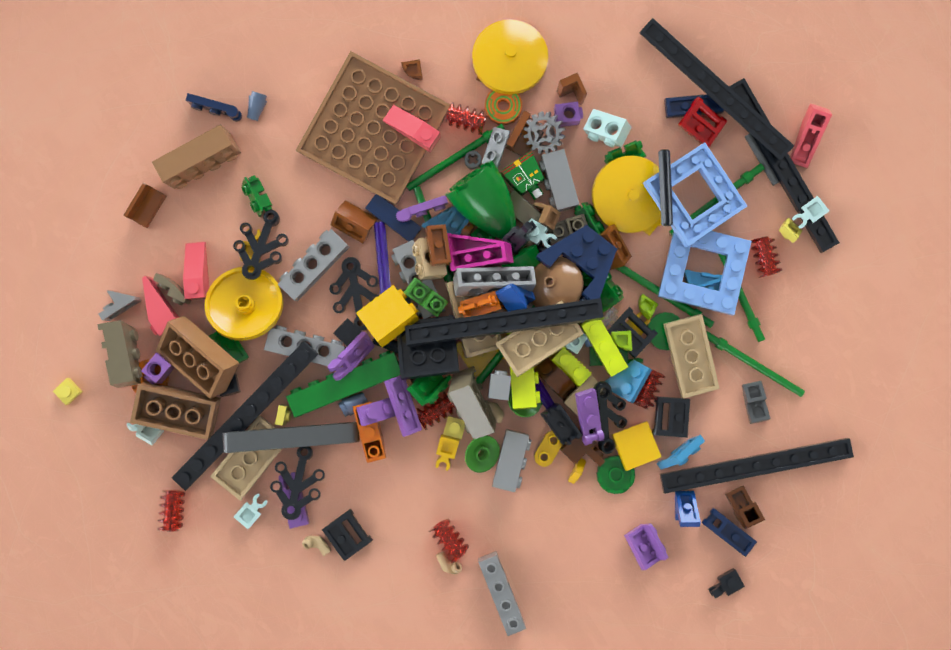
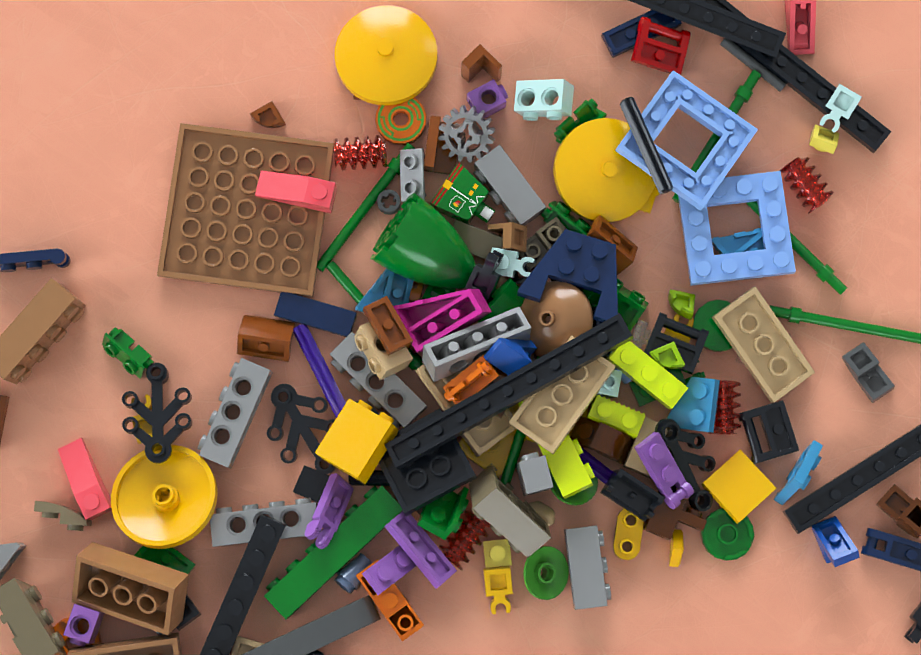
camera: 25 degrees left, 5 degrees down
(158, 307) = (55, 547): coral slope -> none
(256, 105) = (84, 237): sand blue cone -> none
(283, 415) = (269, 622): light yellow plate -> none
(421, 209) = (347, 288): medium lavender hinge -> none
(425, 297) = (396, 398): bright green slope -> none
(646, 545) = (802, 610): medium lavender bracket -> none
(655, 289) = (684, 278): green bar -> none

